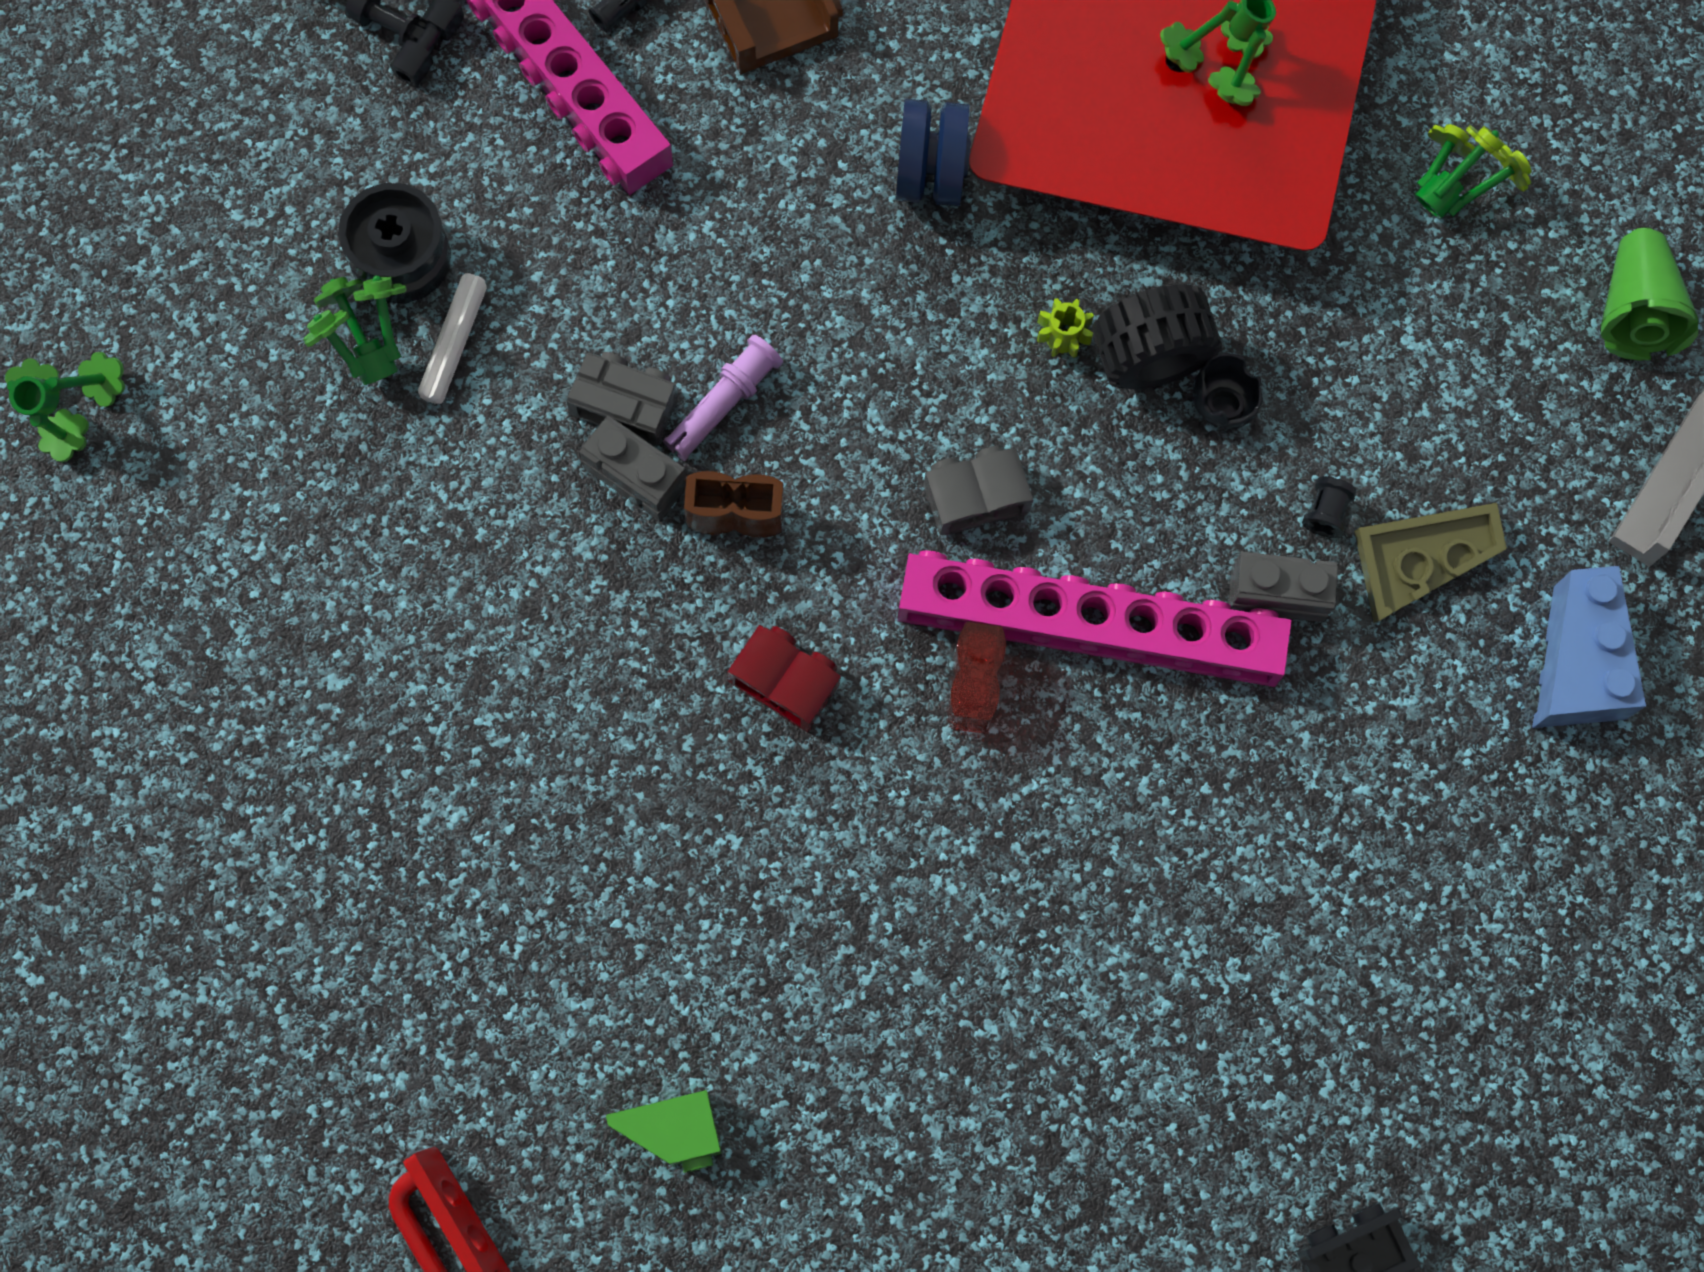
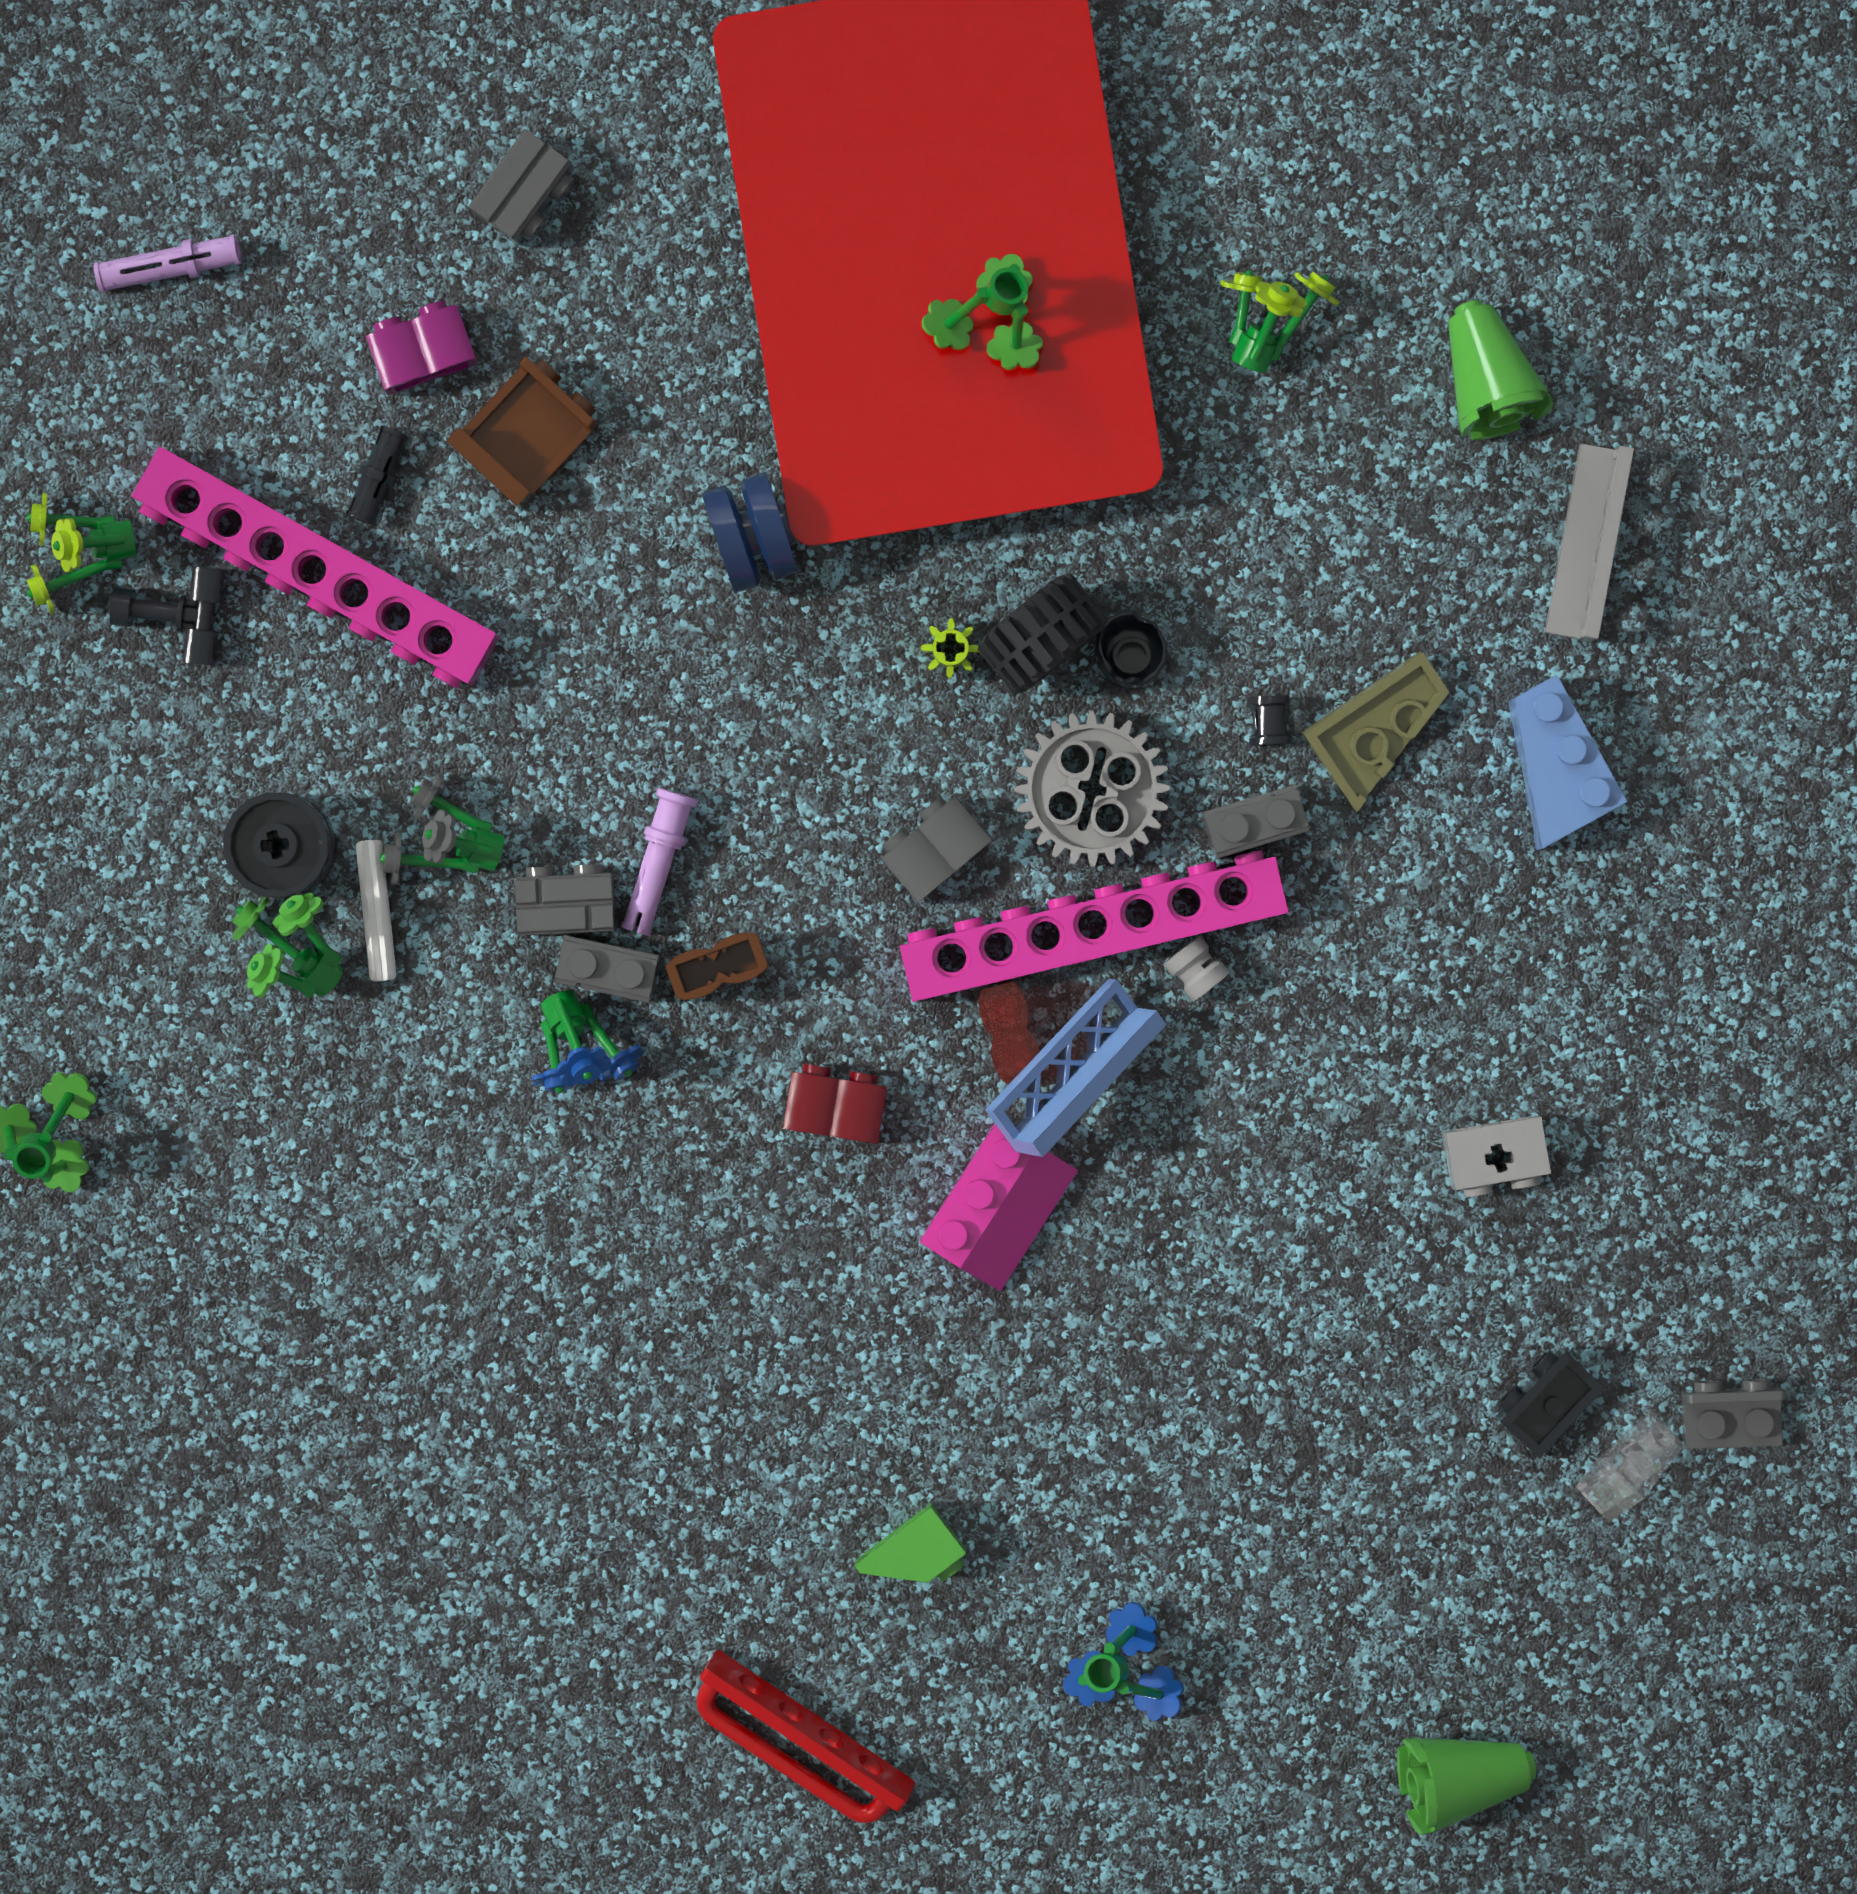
camera: 20 degrees left, 15 degrees up
(570, 314) = (476, 846): none -> plant
(573, 518) = (566, 1019): none -> plant
(897, 832) = (997, 1209): none -> dark pink slope
(1029, 745) = (1083, 1083): none -> medium blue fence
(1174, 695) = (1196, 968): none -> light grey wheel
(1176, 522) = (1134, 799): none -> light grey gear
(1422, 982) = (1519, 1137): none -> light grey brick

